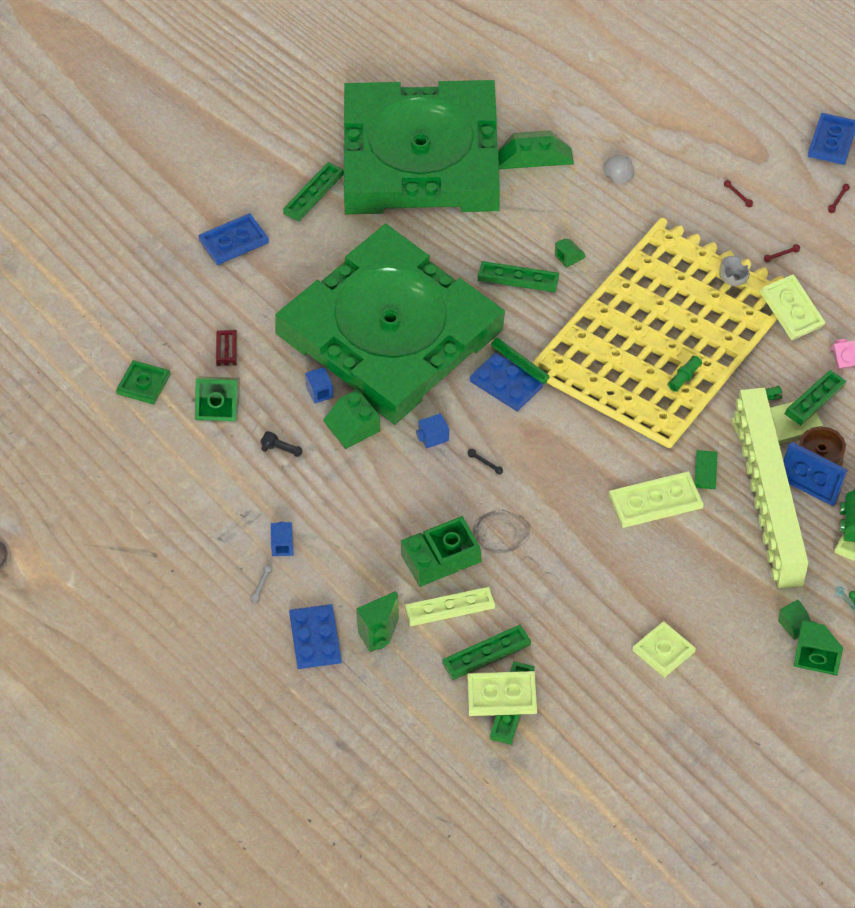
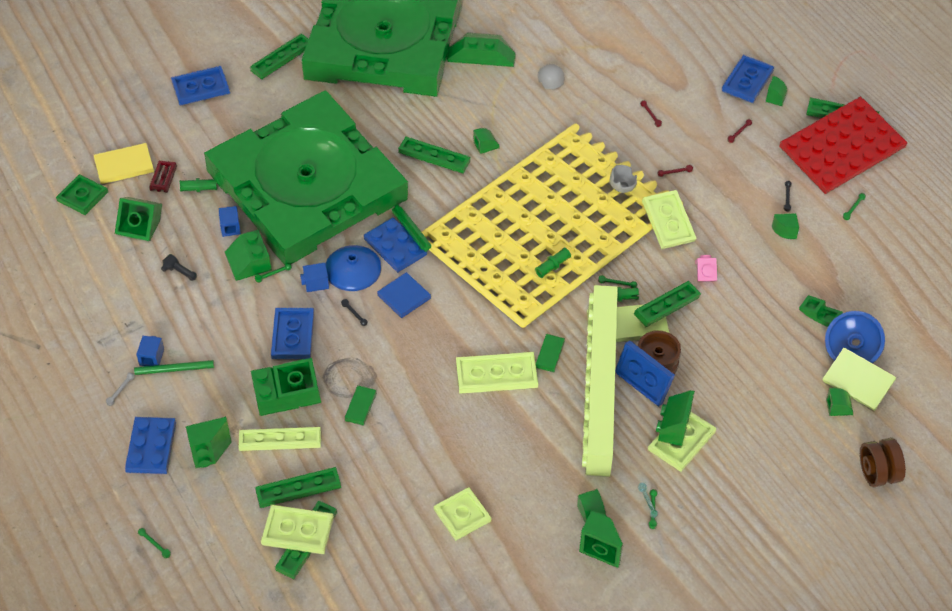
camera: 10 degrees right, 0 degrees up
(177, 340) = (123, 163): none -> light yellow tile
(269, 351) = (198, 185): none -> green pin
(311, 551) = (173, 367): none -> green bar
(369, 742) = (165, 552): none -> green hinge
(370, 441) = (258, 278): none -> green hinge
(427, 494) = (292, 333): none -> blue plate
(469, 413) = (353, 268): none -> blue dish
(523, 557) = (360, 405): none -> green tile
(532, 434) = (404, 295): none -> blue tile
(737, 383) = (602, 279): none -> green hinge

